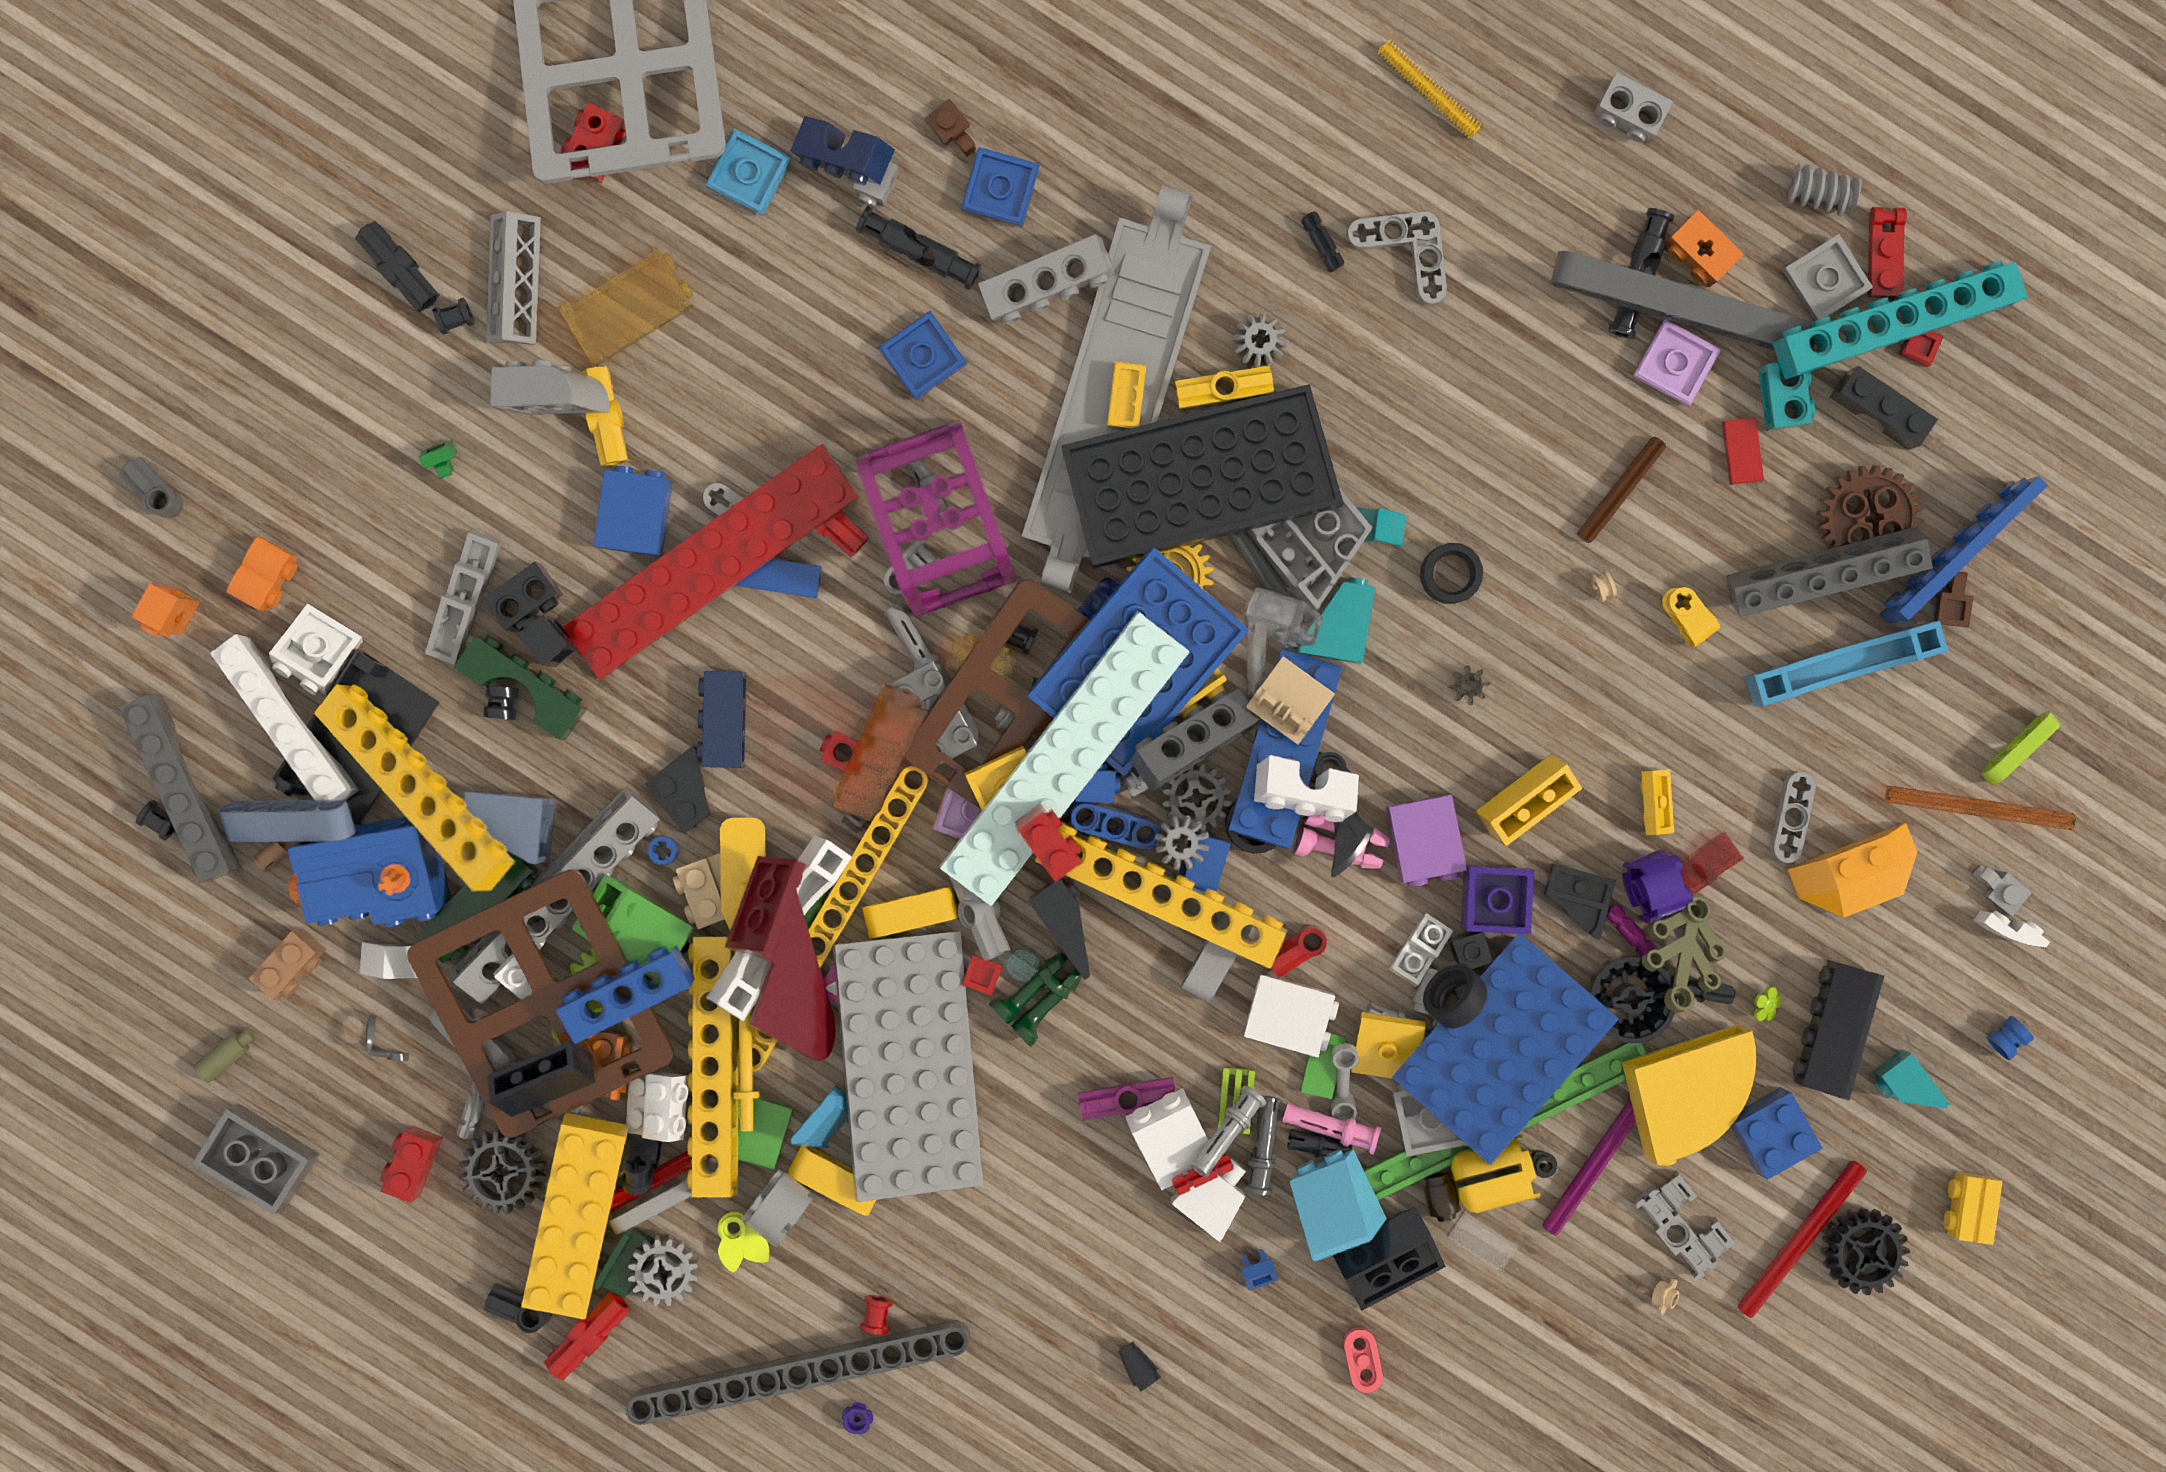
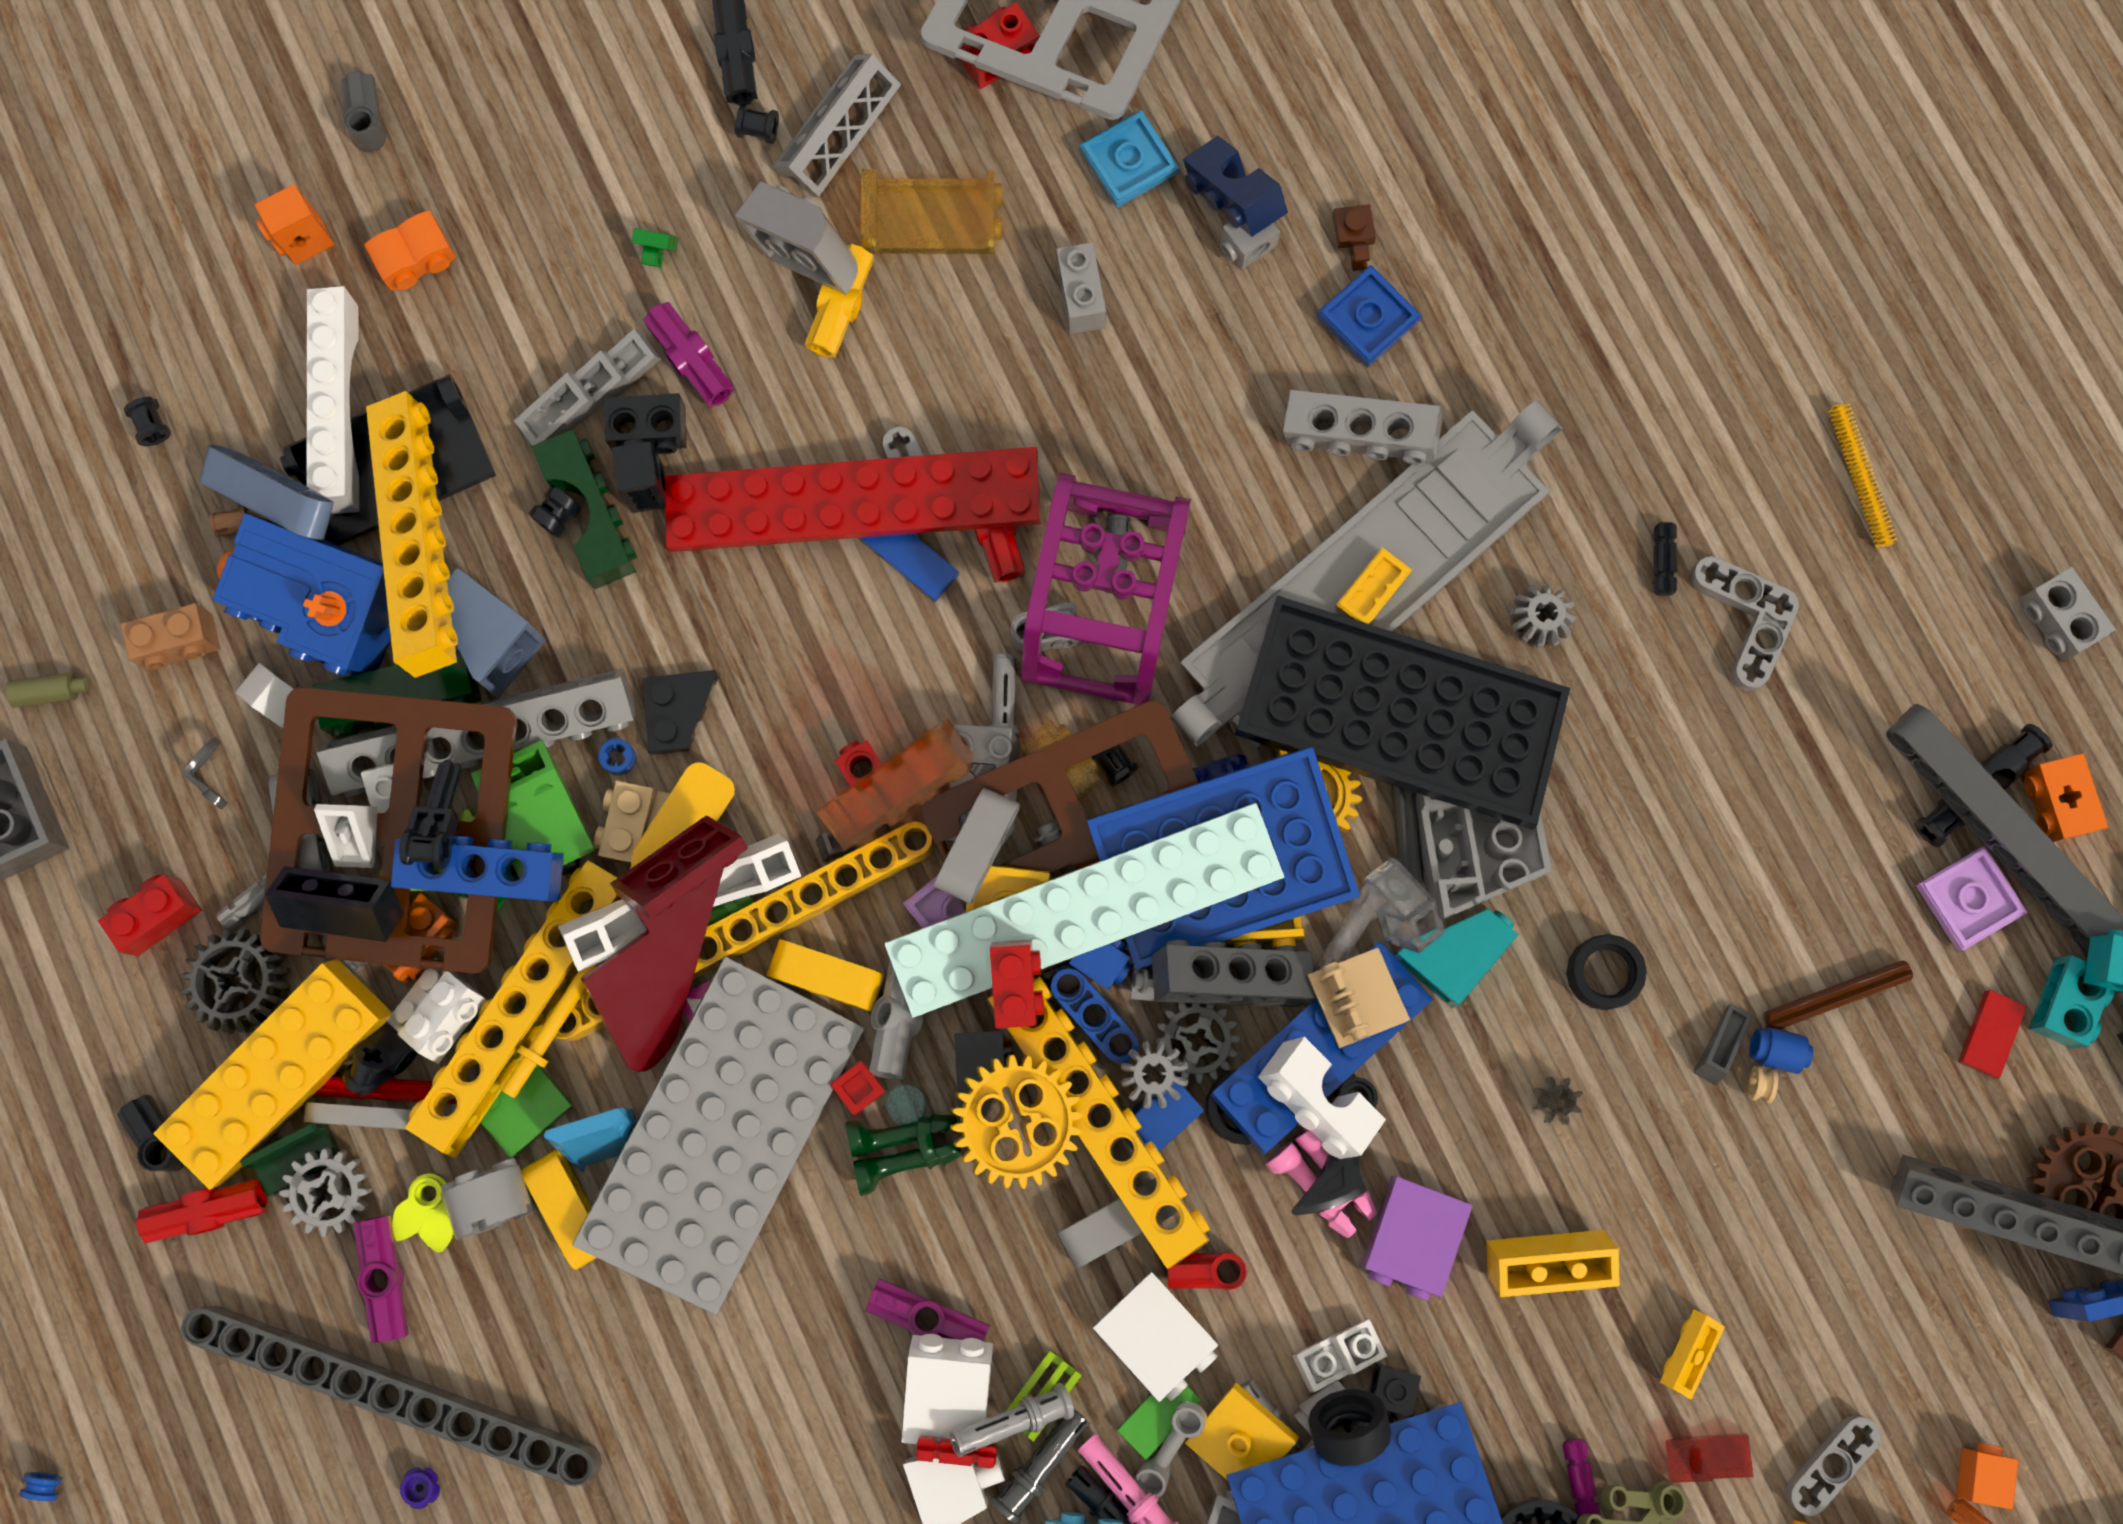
camera: 30 degrees right, 10 degrees down
(160, 751) = (174, 460): dark grey arch -> none
(314, 650) = (408, 350): white plate -> none
(517, 1024) = (349, 833): none -> white slope
(520, 525) = (688, 354): none -> magenta piece
(577, 985) = (434, 826): none -> black connector
(633, 511) = (807, 407): blue brick -> none
(722, 719) = (762, 662): dark blue brick -> none
(754, 1318) = (383, 1306): none -> magenta piece
(776, 297) = (1081, 288): none -> light grey brick
(876, 1314) = (513, 1384): red bush -> none
(906, 241) = (1241, 308): black piece -> none
(922, 355) = (1191, 429): blue plate -> none
(962, 761) = (977, 845): none -> light grey beam
(1124, 911) = (982, 1135): none -> yellow gear
(1245, 384) = (1455, 630): yellow piece -> none
(1386, 524) = (1565, 882): teal slope -> none
(1497, 899) = (1456, 1351): brick -> none
(1561, 573) = (1723, 1045): none -> dark grey piece
(1581, 896) = (1548, 1406): black wing -> none
(1602, 554) = (1781, 1050): none -> blue brick
(1656, 885) = (1641, 1445): dark purple brick -> none
(1693, 619) = (1842, 1177): yellow piece -> none
(1846, 663) = (1987, 1330): dark azure arch -> none
(1899, 761) = (1987, 1476): none -> orange brick

